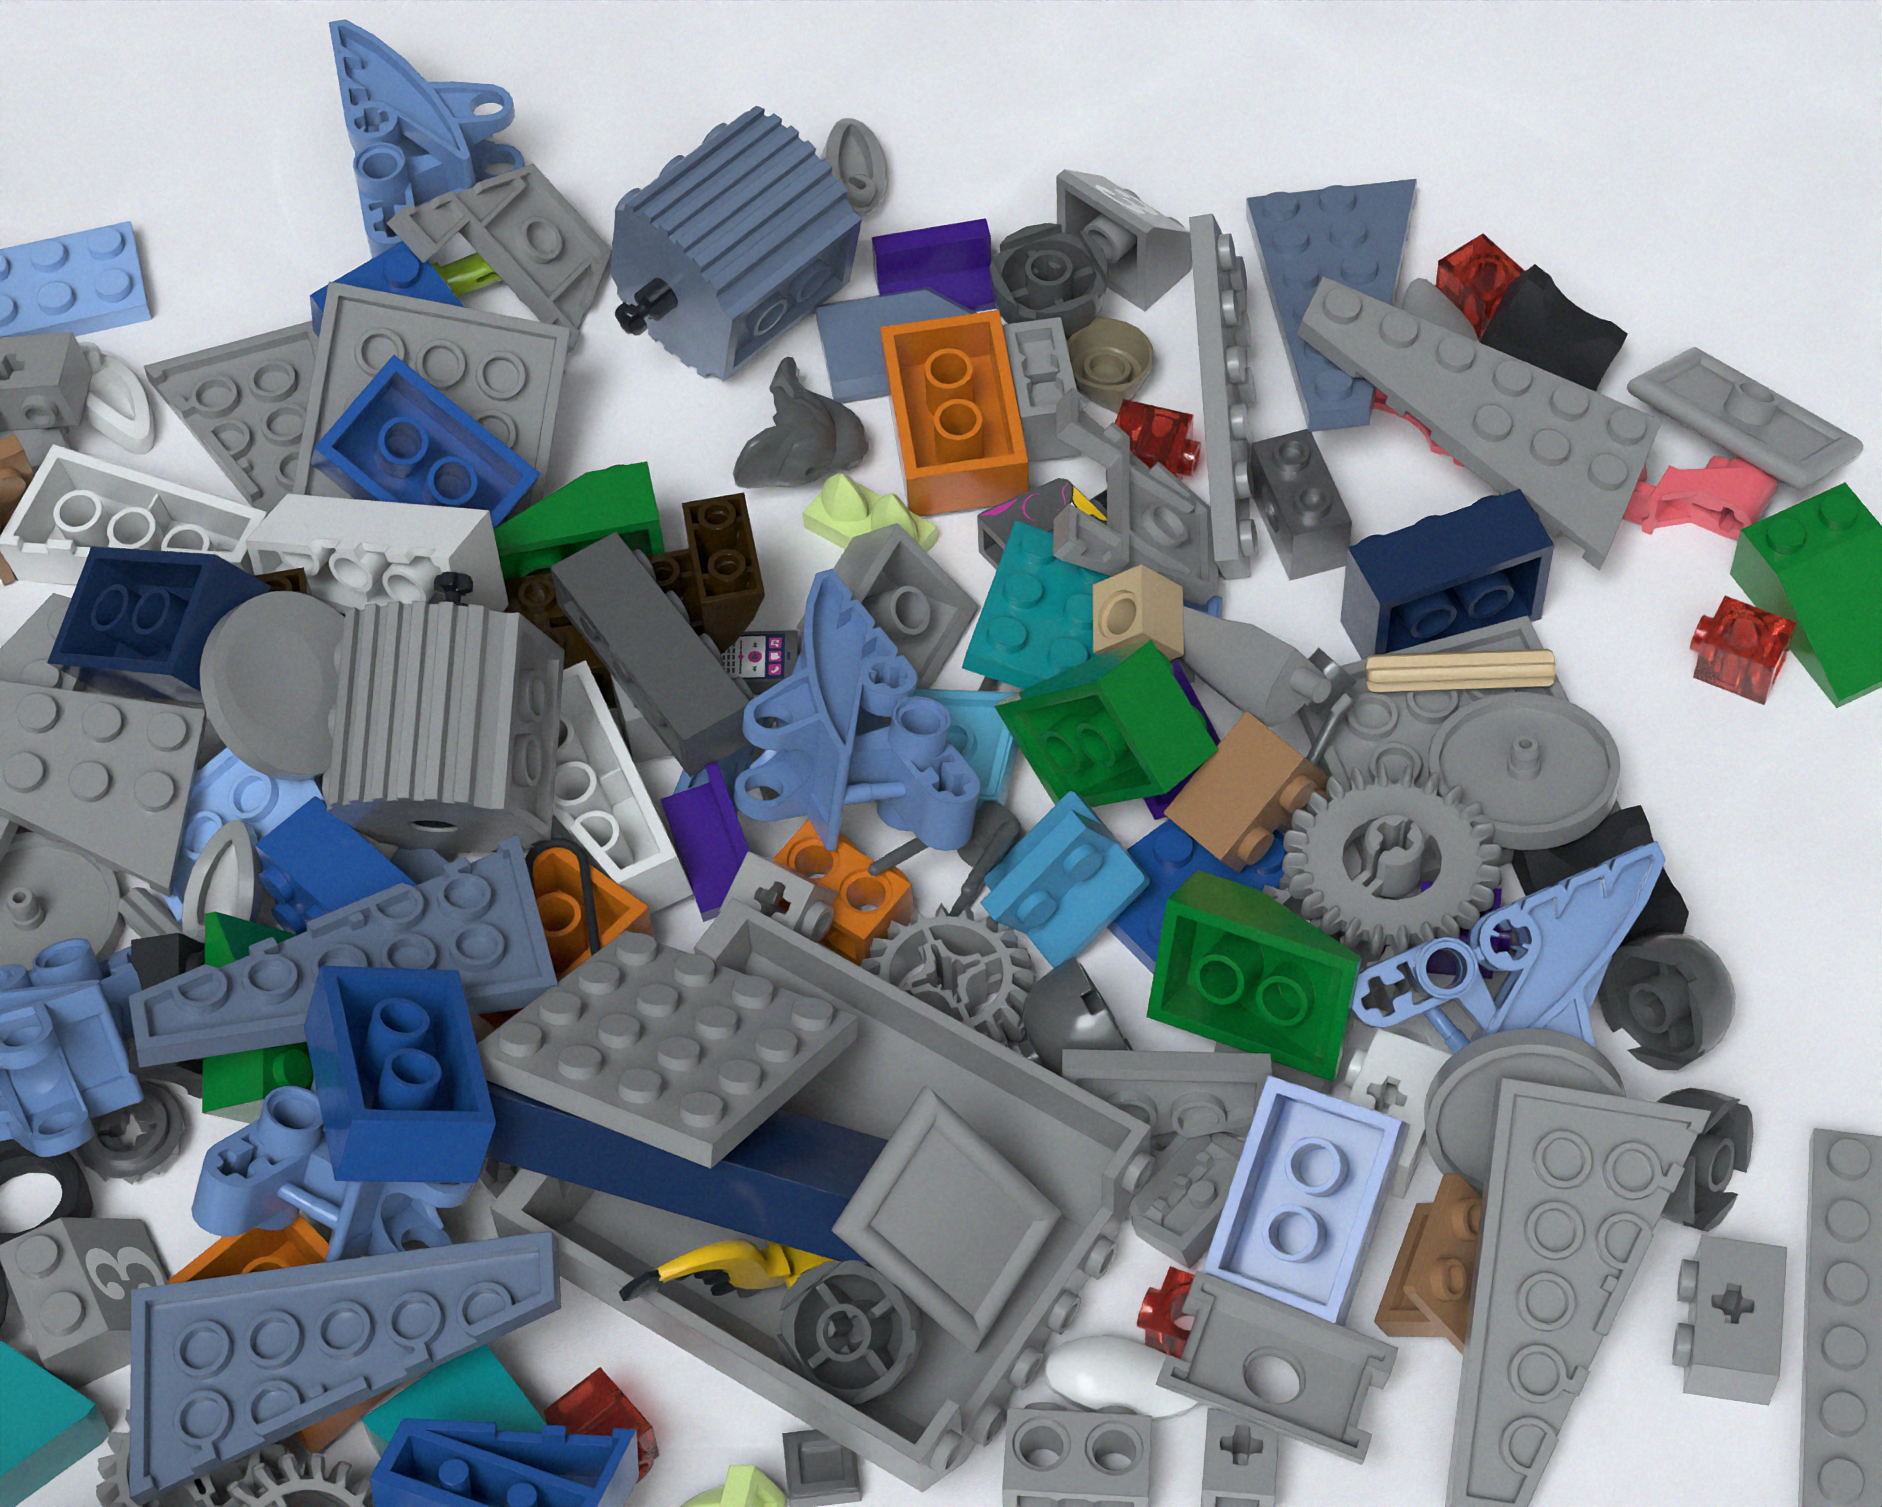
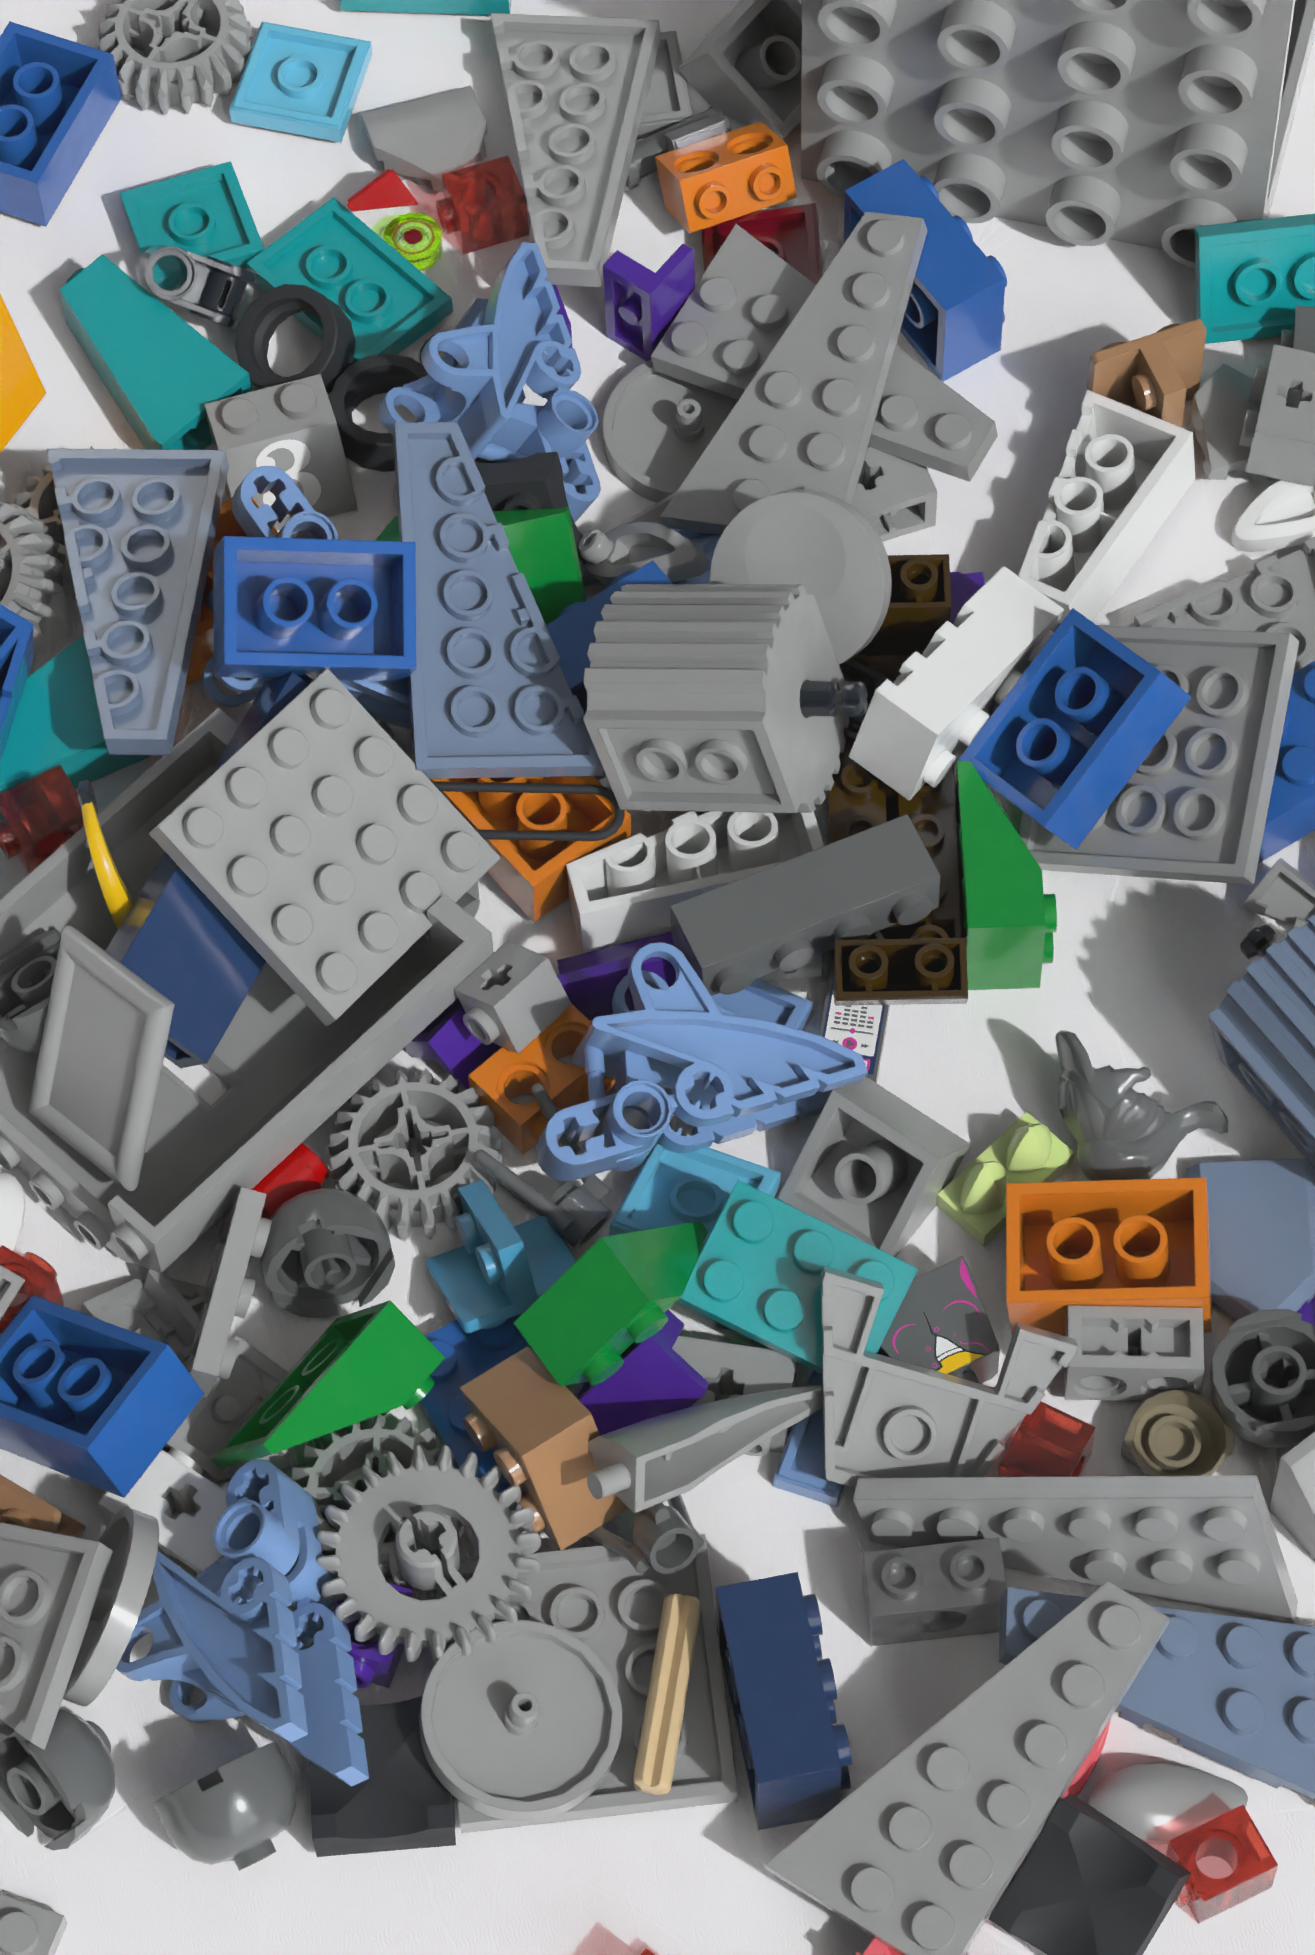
camera: 100 degrees right, 5 degrees up
(146, 619) = (912, 476): dark blue brick -> none
(1138, 608) = (753, 1355): tan brick -> none

